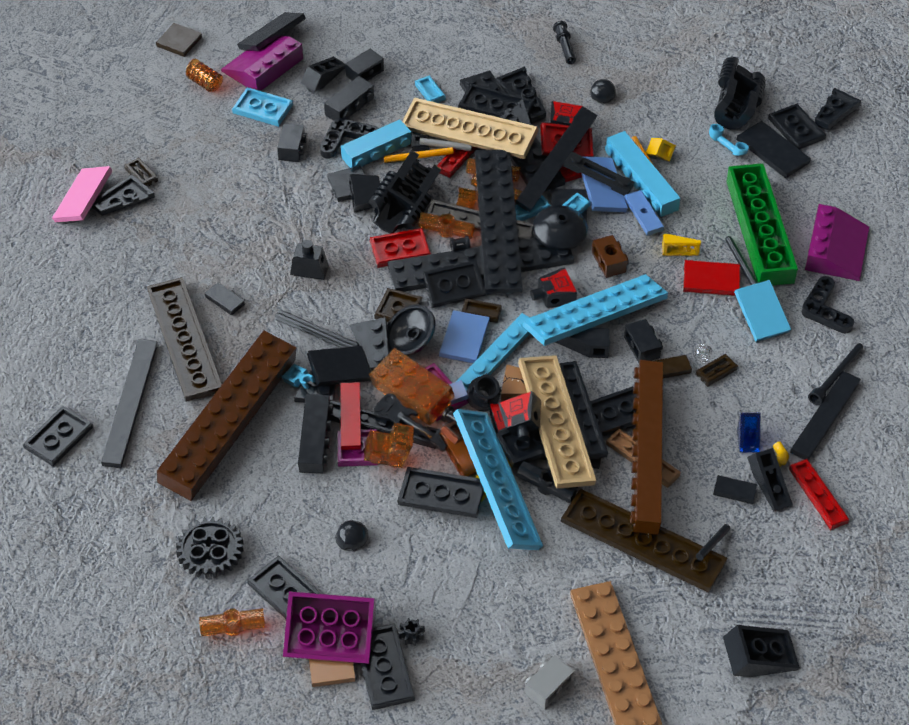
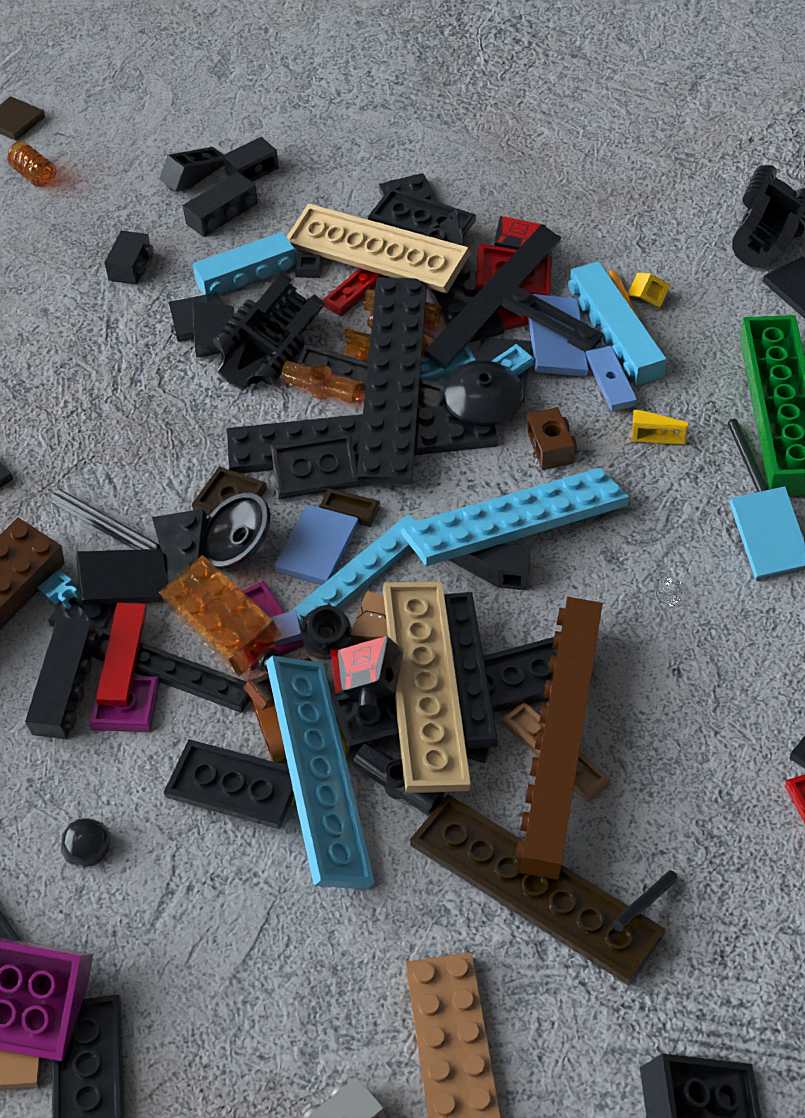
camera: 10 degrees right, 0 degrees up
(262, 106) = (103, 208): medium azure tile -> none
(264, 66) = (119, 151): magenta slope -> none
(271, 31) = (135, 111): black tile -> none
(309, 261) = (113, 421): black torso -> none
(345, 130) = (207, 244): black beam -> none
(389, 448) = (165, 707): clear orange brick -> none
(392, 410) = (185, 649): black piece -> none
(399, 246) = (248, 407): red tile -> none
(411, 631) = (132, 1015): black gear -> none
(422, 154) = (307, 281): light orange bar -> none
(430, 89) = (336, 195): medium azure tile -> none
(445, 144) = (340, 269): light grey bar -> none
(465, 240) = (327, 407): black bush -> none
(519, 84) = (462, 193): black wing -> none
(555, 289) = (461, 481): black torso -> none
(563, 37) = (533, 134): black pin -> none
(603, 91) = (578, 207): black hair -> none
(643, 340) = (581, 567): black brick -> none
(675, 366) = (623, 610): dark brown tile -> none
(711, 277) = (699, 478): red tile -> none
(716, 132) = (733, 272): medium azure bar -> none
(719, 372) = (691, 623): dark brown tile -> none
(735, 489) = (693, 813): black tile -> none
(749, 432) = (726, 722): clear blue slope -> none
(770, 478) = (751, 802): black slope -> none
(782, 454) = (776, 762): yellow arm -> none

